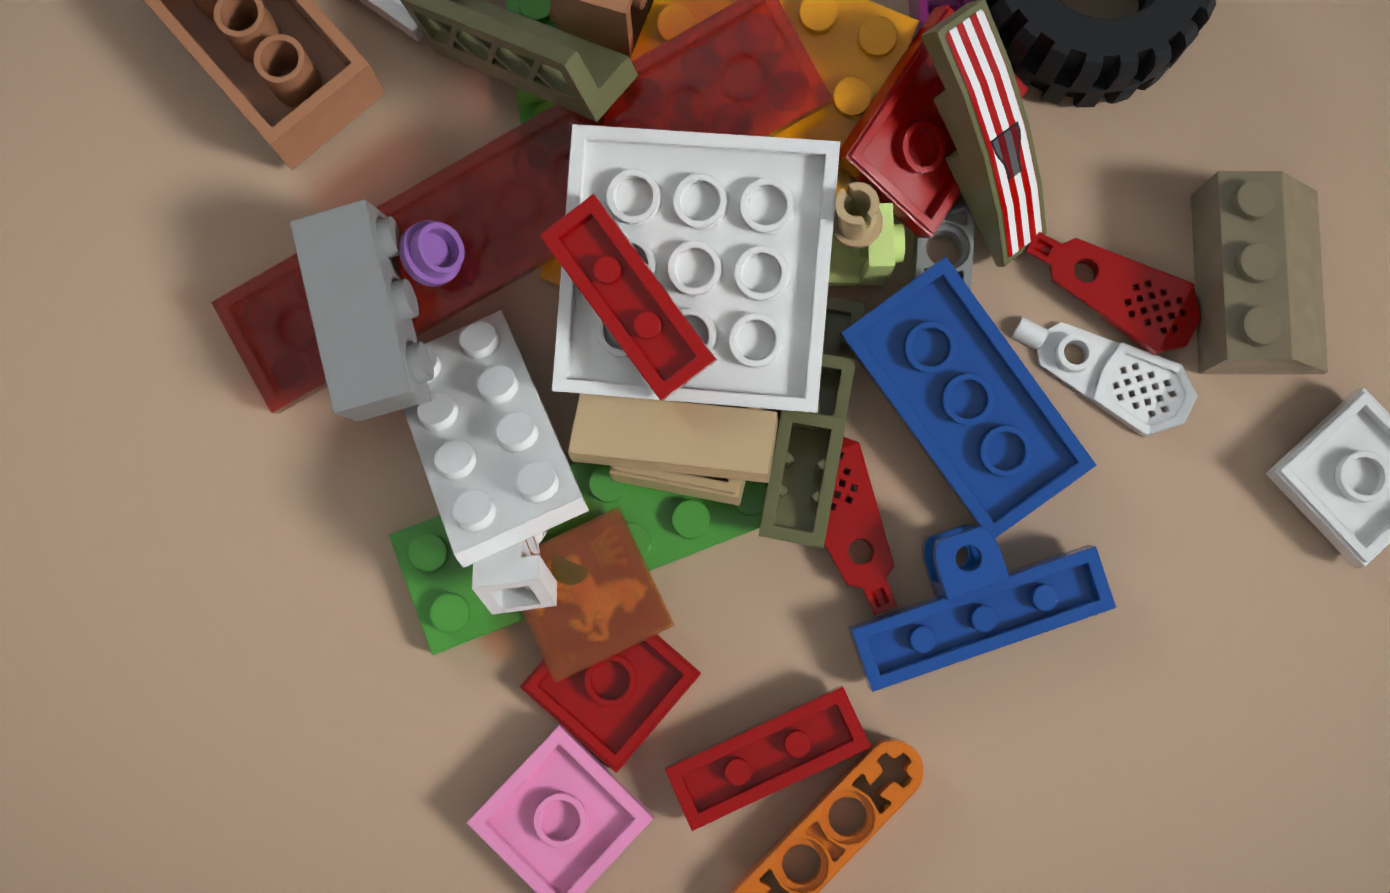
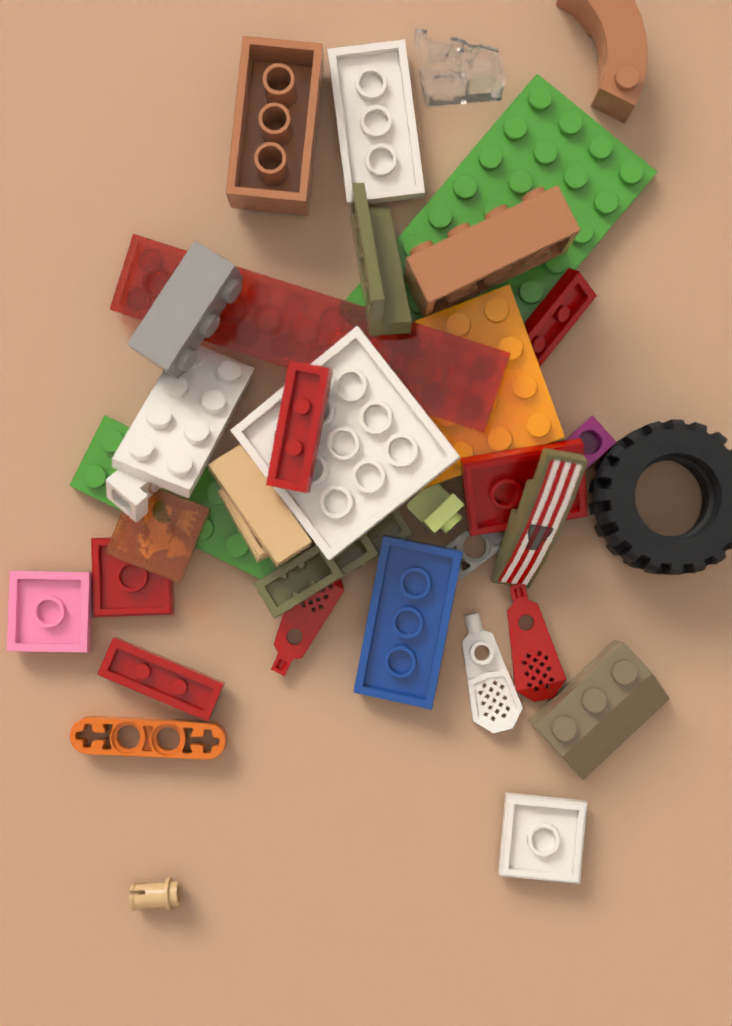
camera: 50 degrees right, 5 degrees up
(431, 252) = (242, 315): medium lavender plate -> none
(853, 230) = (442, 504): tan pin -> none
(978, 606) = (317, 713): blue plate -> none

